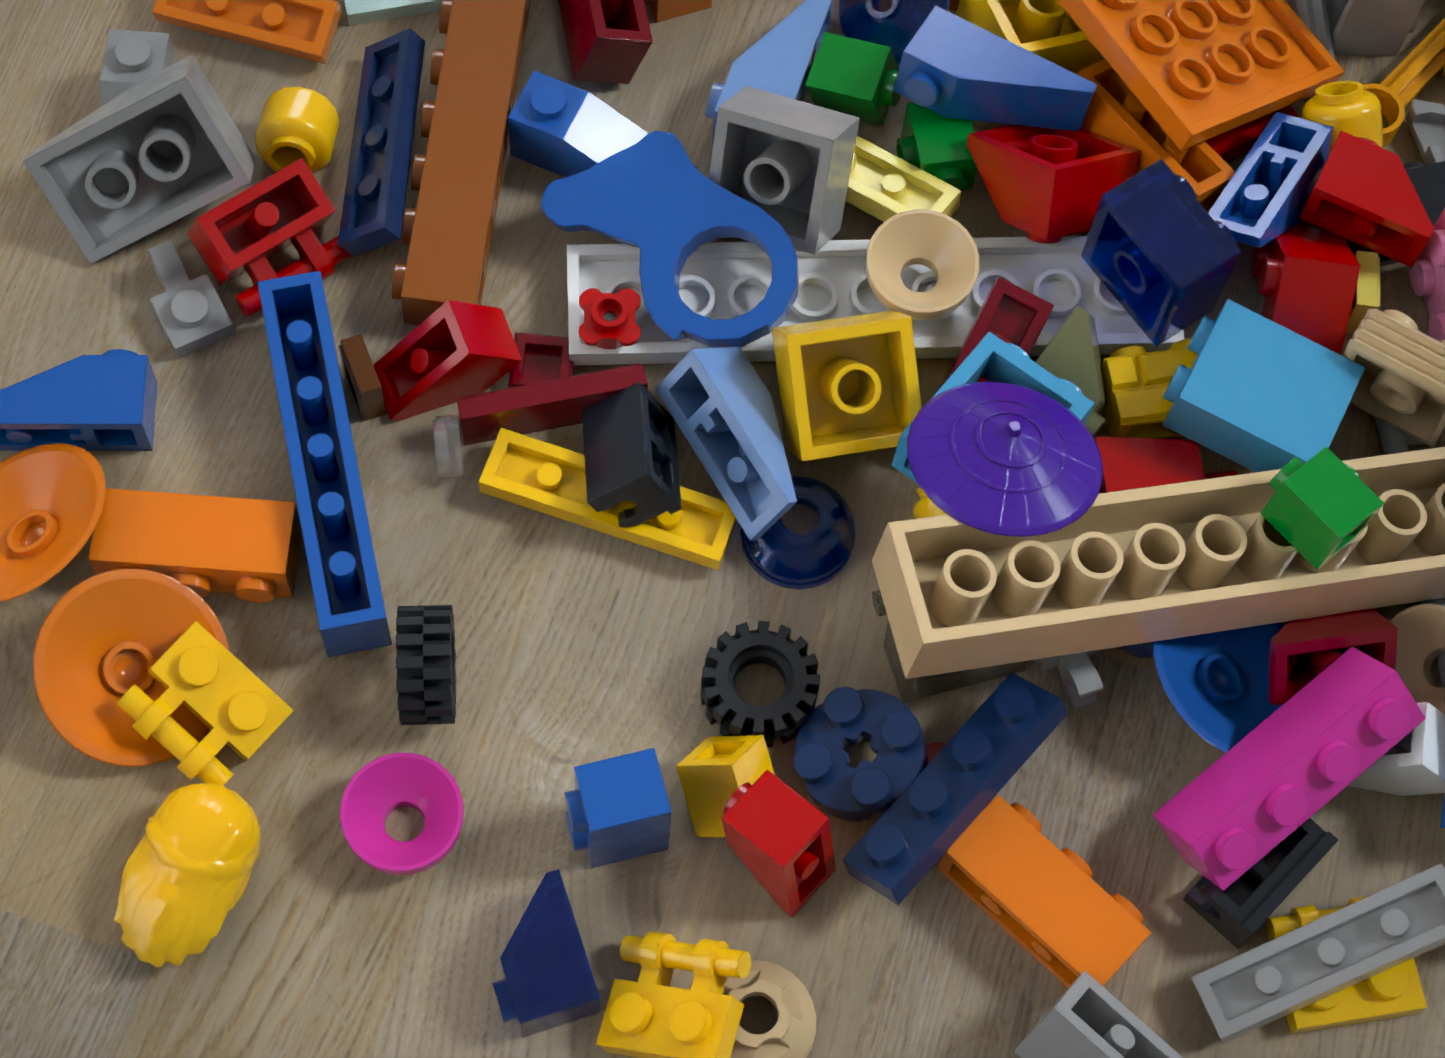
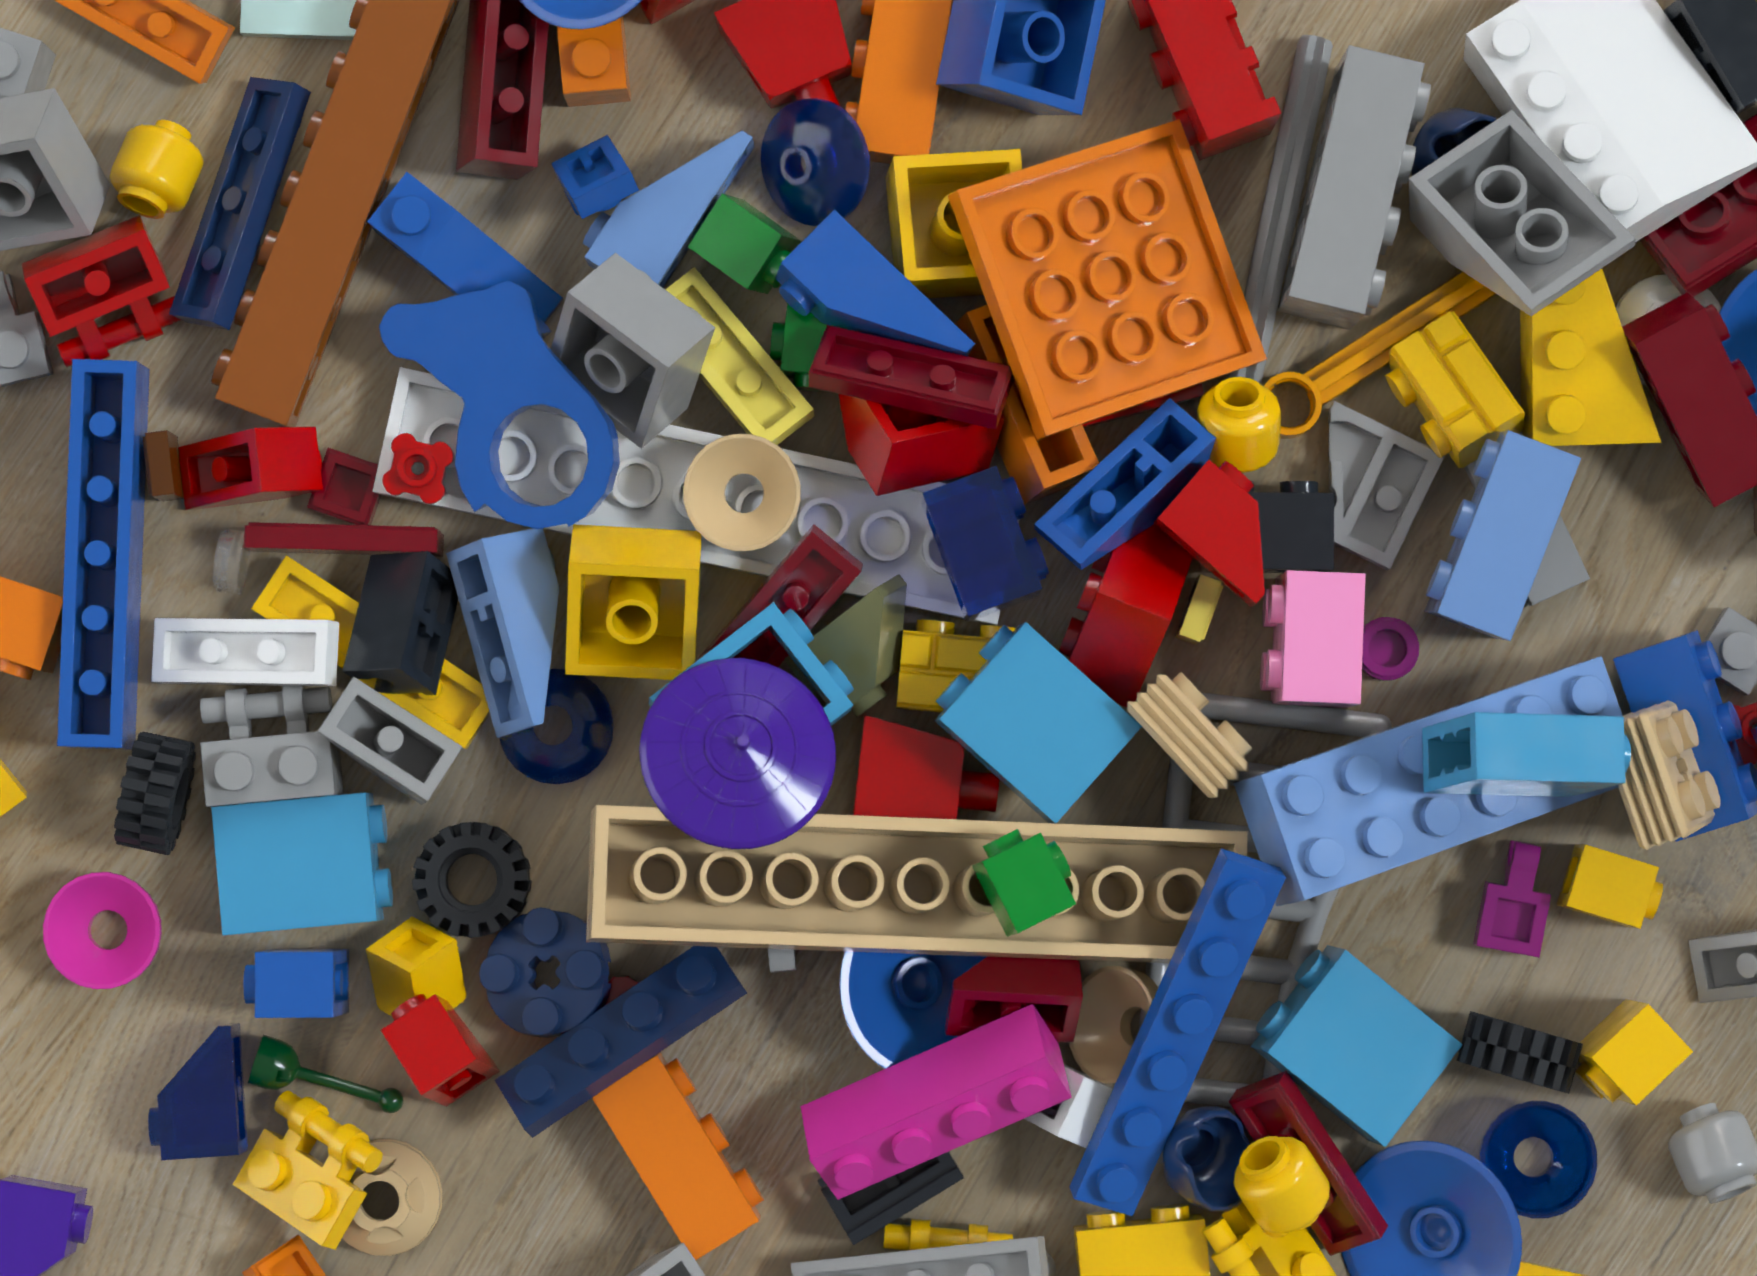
camera: 20 degrees right, 20 degrees up
(484, 517) = (245, 652): none -> white plate
(534, 618) = (269, 766): none -> light grey brick
(585, 702) = (300, 863): none -> dark azure brick
(612, 912) = (279, 1065): none -> dark green hinge
(650, 562) = (389, 741): none -> light grey slope
(704, 55) = (594, 177): none -> blue bracket
(1049, 125) = (911, 376): none -> dark red tile

